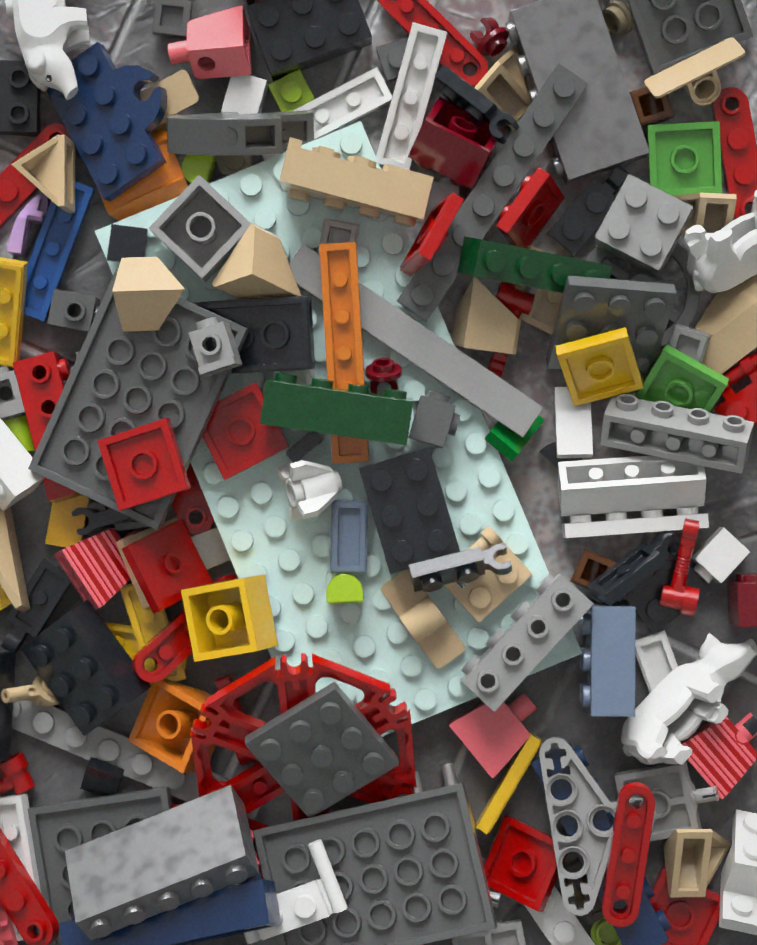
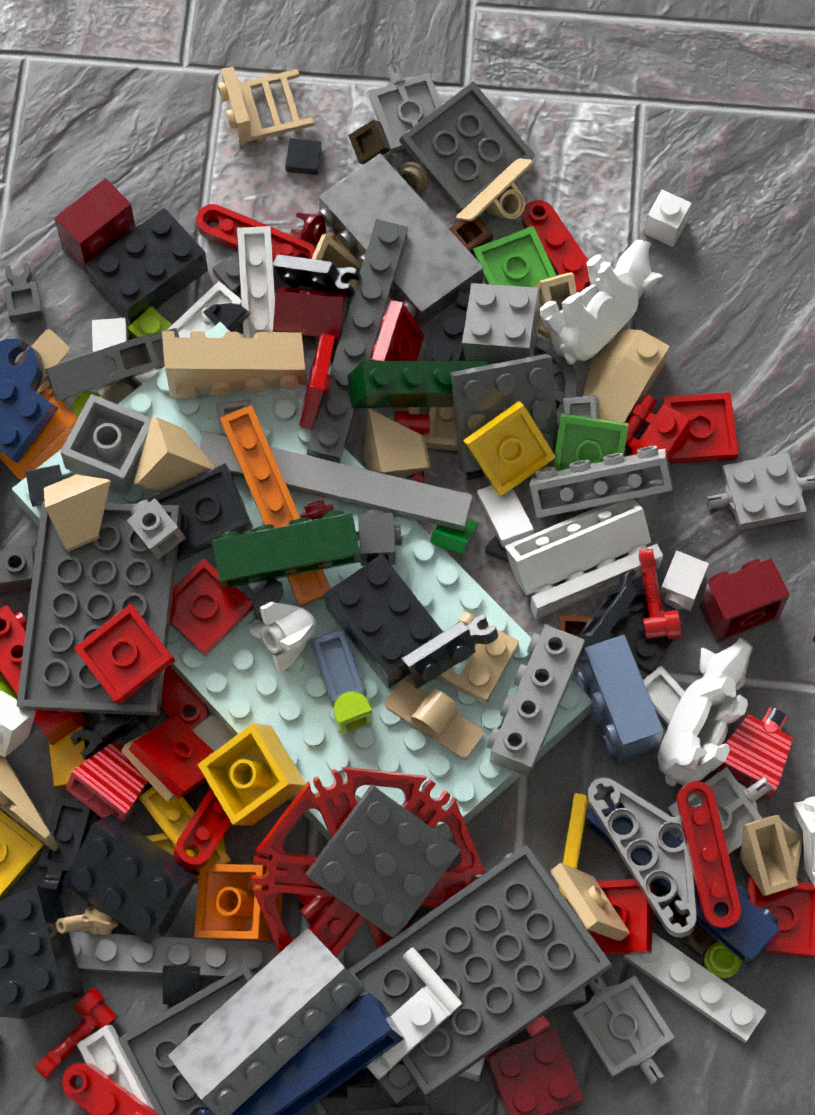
camera: 20 degrees left, 20 degrees down
(216, 45) = (69, 306): coral torso -> none
(371, 113) = (229, 314): none -> black tile
(494, 735) = (538, 807): coral torso -> none
(502, 852) = (589, 902): none -> tan plate

